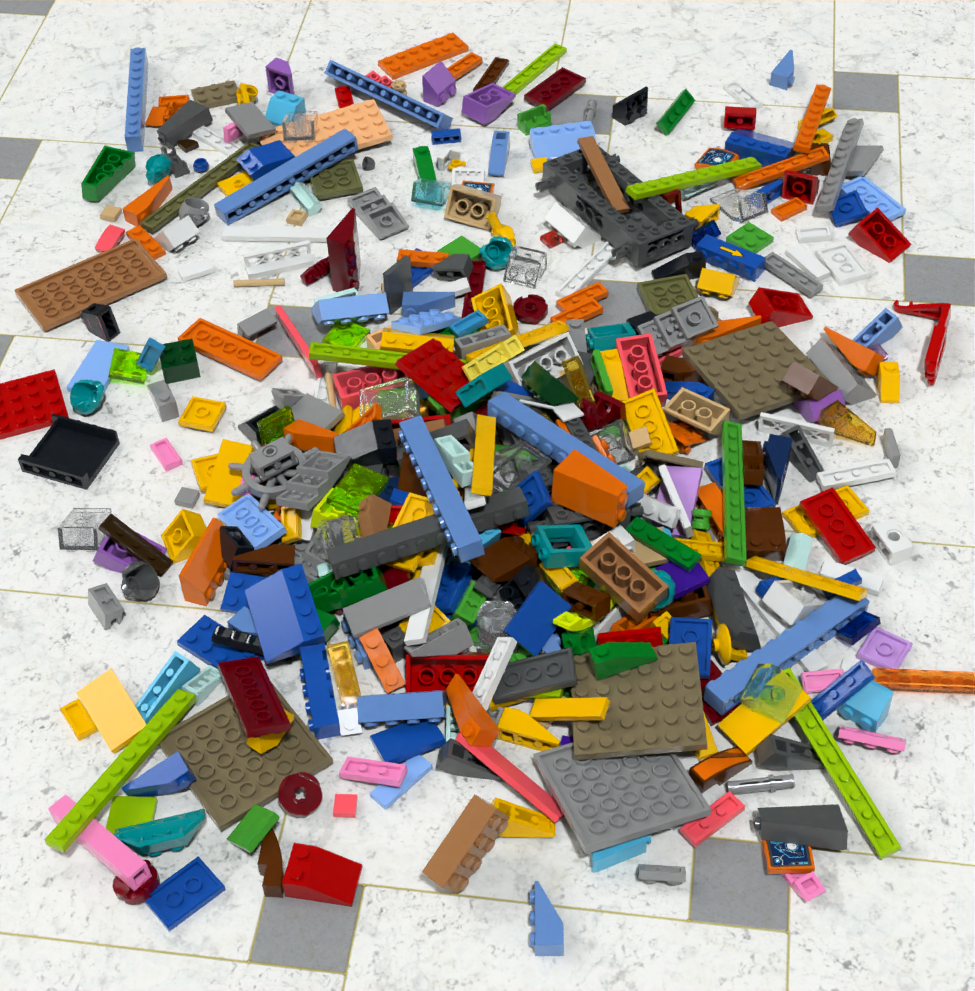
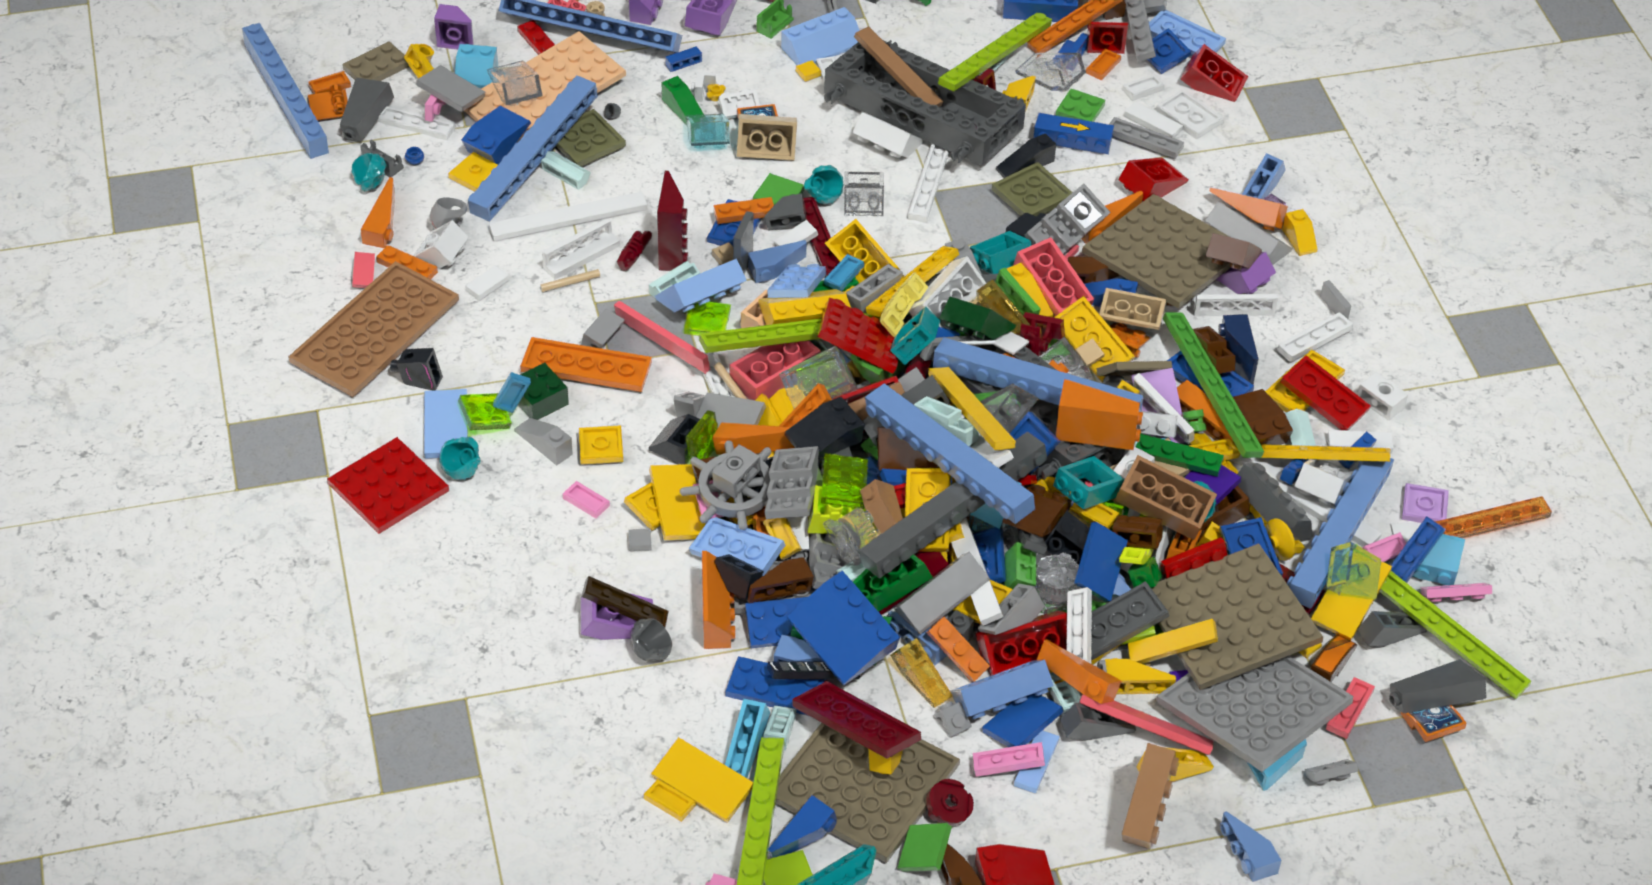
camera: 25 degrees left, 0 degrees up
(71, 452) = (477, 524): black panel -> none
(81, 530) = (550, 603): clear slope -> none
(105, 605) = (626, 677): light grey hinge -> none
(107, 172) = (310, 187): green wedge -> none
(110, 213) = (341, 238): tan tile -> none
(183, 535) = (668, 581): yellow slope -> none
(187, 145) = (381, 134): dark brown tile -> none
(195, 190) = (431, 184): olive plate -> none
(297, 217) = (567, 194): tan tile -> none
(319, 691) = (909, 697): blue wedge -> none
(345, 805) = (996, 801): coral tile -> none
(377, 213) = (650, 163): light grey slope -> none
(499, 153) = (759, 66): medium blue slope -> none
(500, 229) = (810, 158): yellow arm -> none
(523, 310) = (902, 240): dark red plate -> none
(551, 239) = (869, 155): clear red tile -> none
(582, 311) = (946, 233): orange plate -> none
(594, 291) = (941, 215): orange plate -> none
(619, 657) = (1197, 578): green slope -> none
(709, 228) = (1033, 107): clear blue plate -> none
(715, 156) = (998, 22): slope -> none
(717, 282) = (1076, 164): yellow slope -> none
(769, 783) = (1385, 659): light grey pin -> none
(802, 454) = (1263, 335): dark grey slope -> none
(805, 885) = (1462, 741): bright pink slope -> none
(847, 423) = (1288, 288): clear yellow slope -> none
(858, 627) = (1392, 489): clear blue plate -> none
(937, 344) = (1328, 177): red hinge -> none

